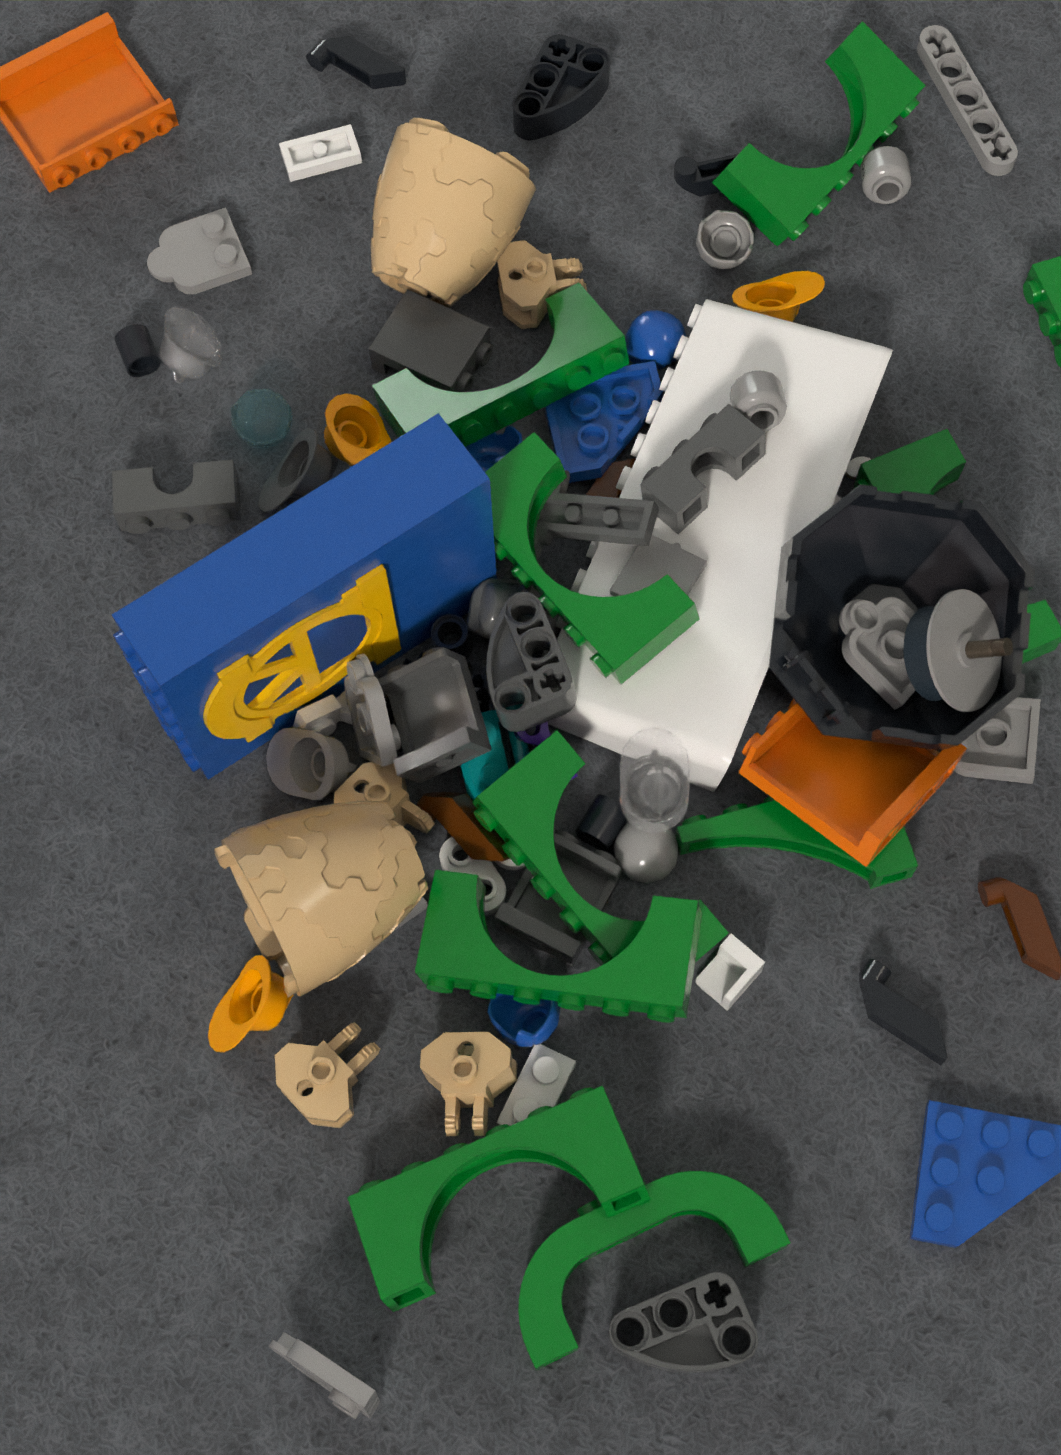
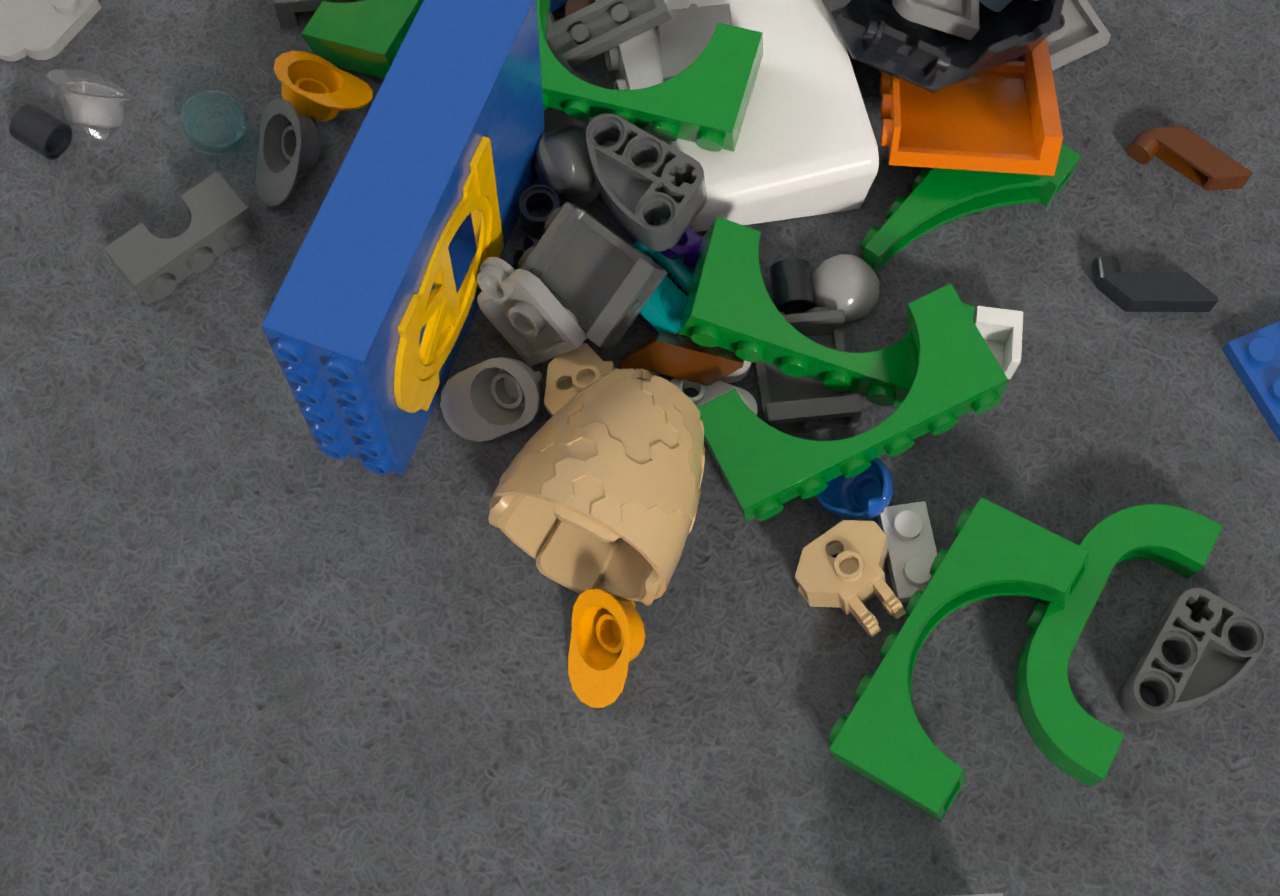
camera: 40 degrees left, 0 degrees up
(324, 715) = (476, 344): white plate -> none
(324, 1071) = (723, 658): tan hinge -> none
(654, 780) = (820, 216): clear piece -> none

